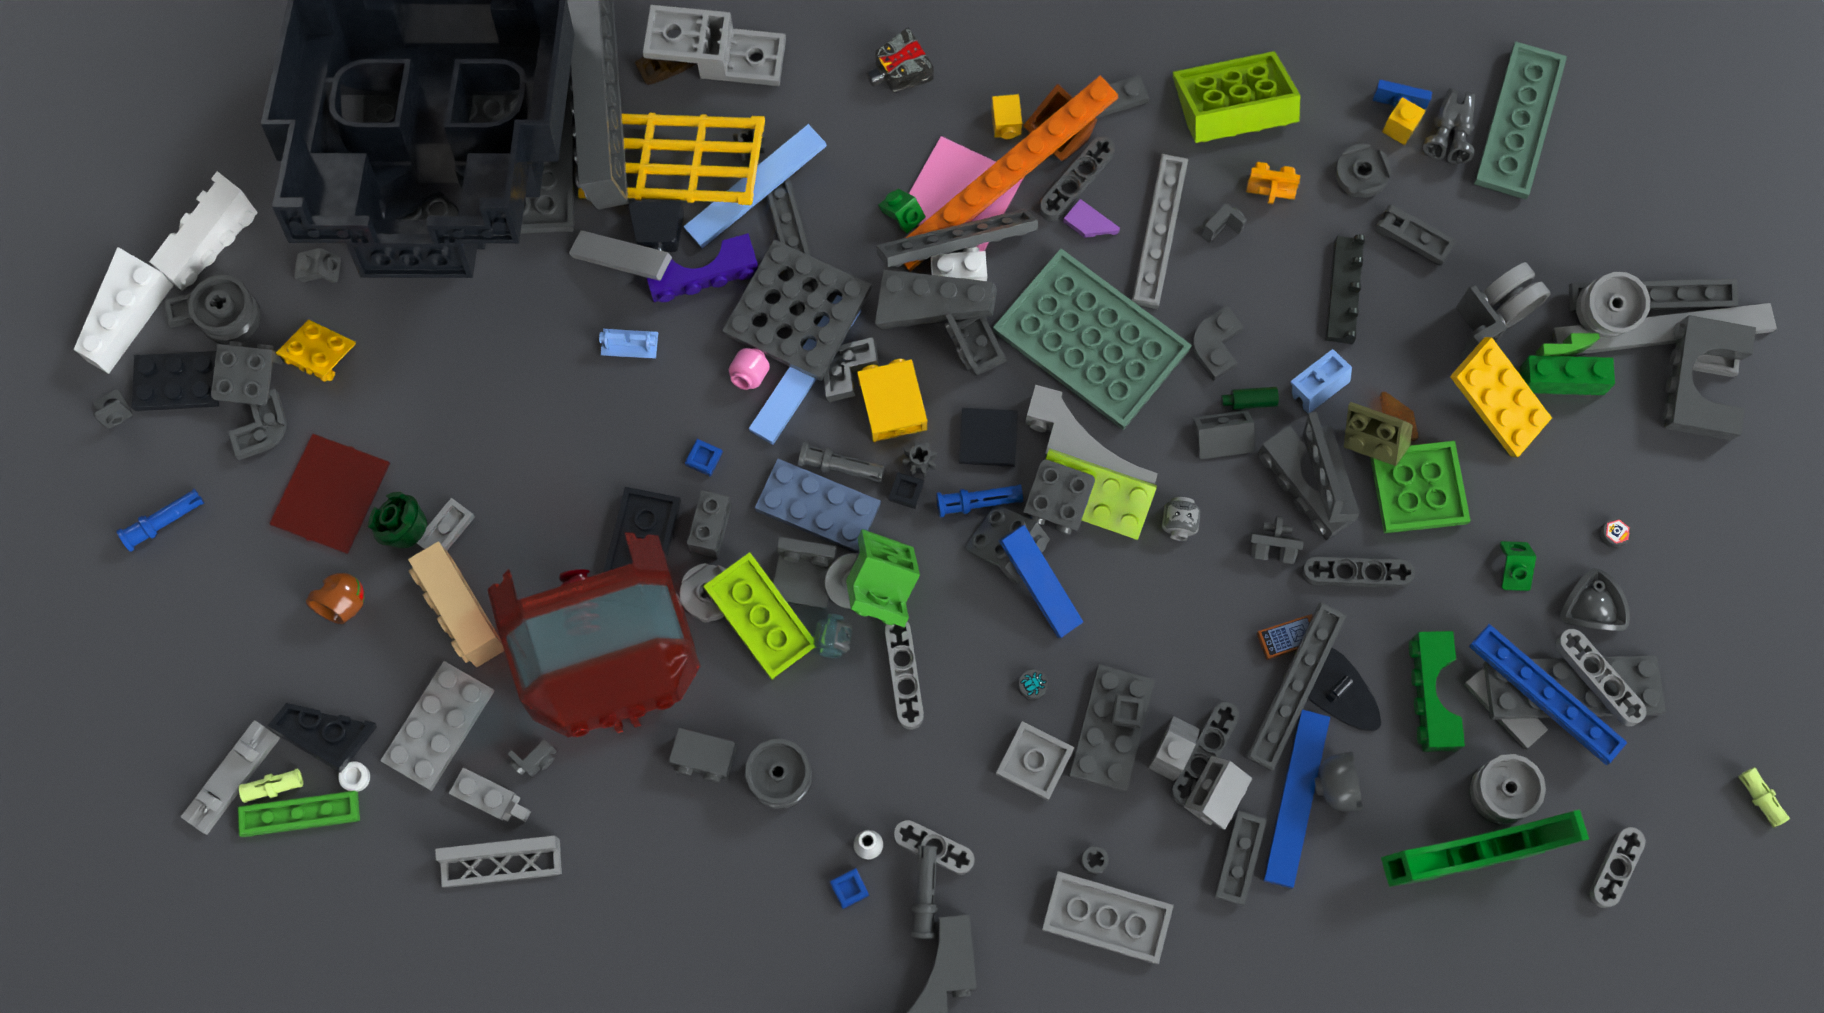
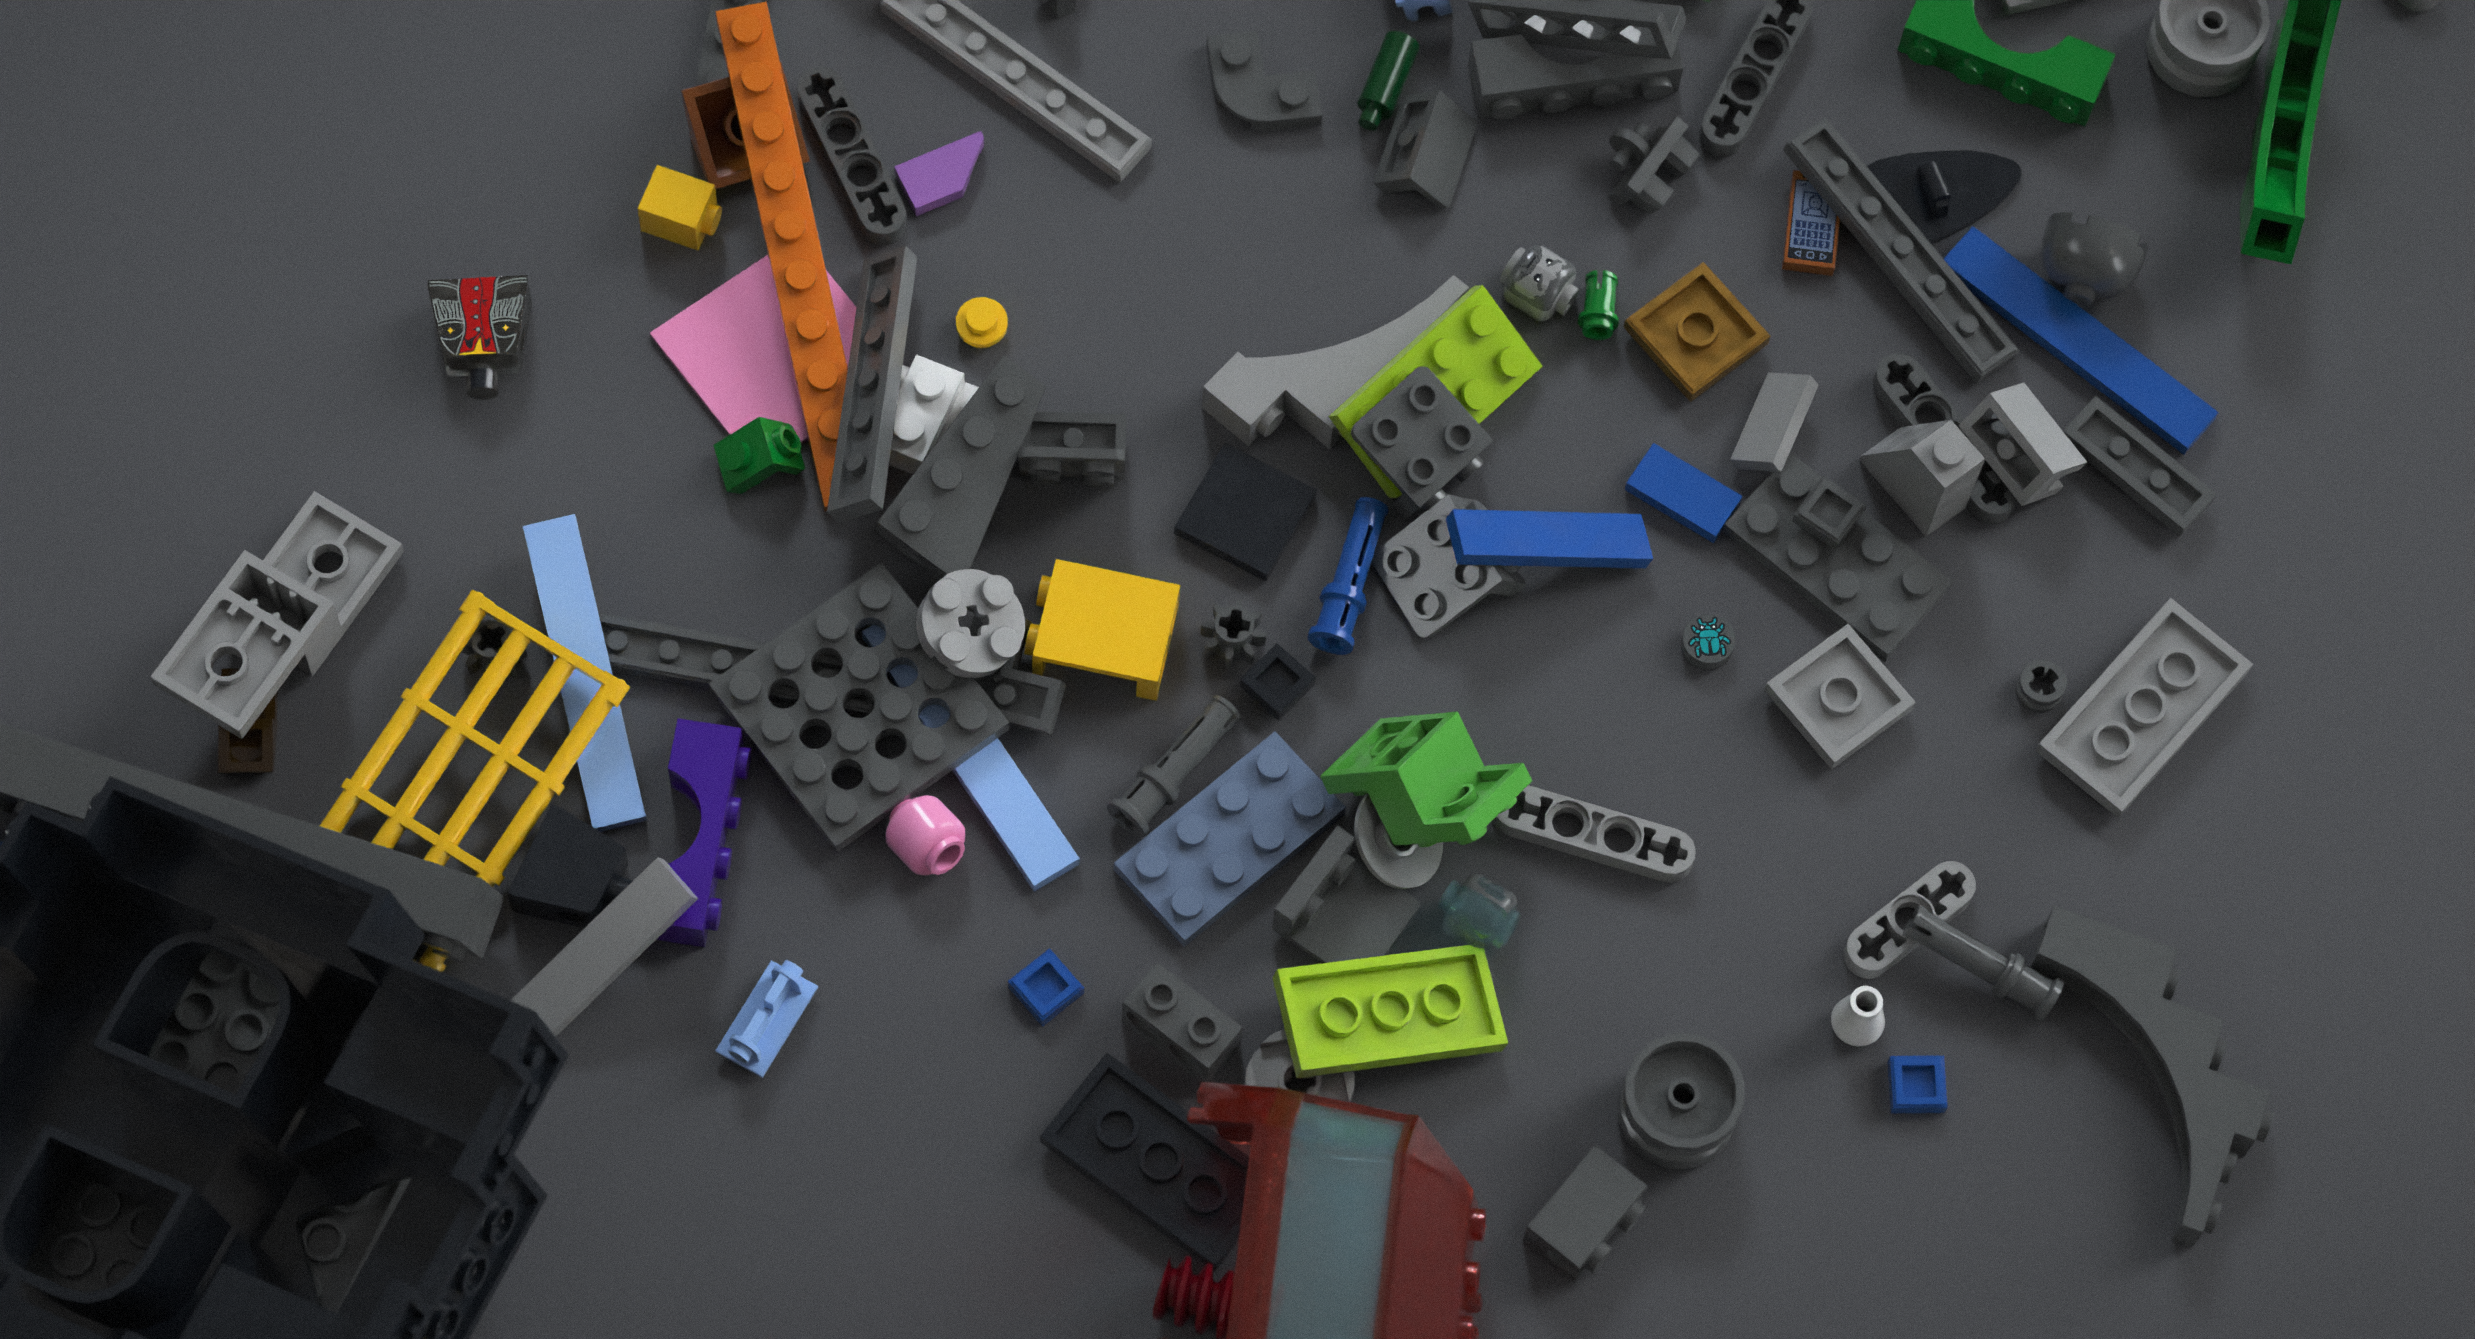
camera: 70 degrees left, 5 degrees down
(859, 319) = (989, 599): none -> light grey plate
(1021, 274) = (981, 322): none -> yellow plate
(1092, 338) = (1155, 268): sand green plate -> none
(1106, 637) = (1683, 492): none -> blue tile
(1166, 664) = (1774, 422): none -> light grey tile
(1178, 554) = (1598, 317): none -> green pin
(1196, 605) = (1696, 331): none -> pearl gold plate

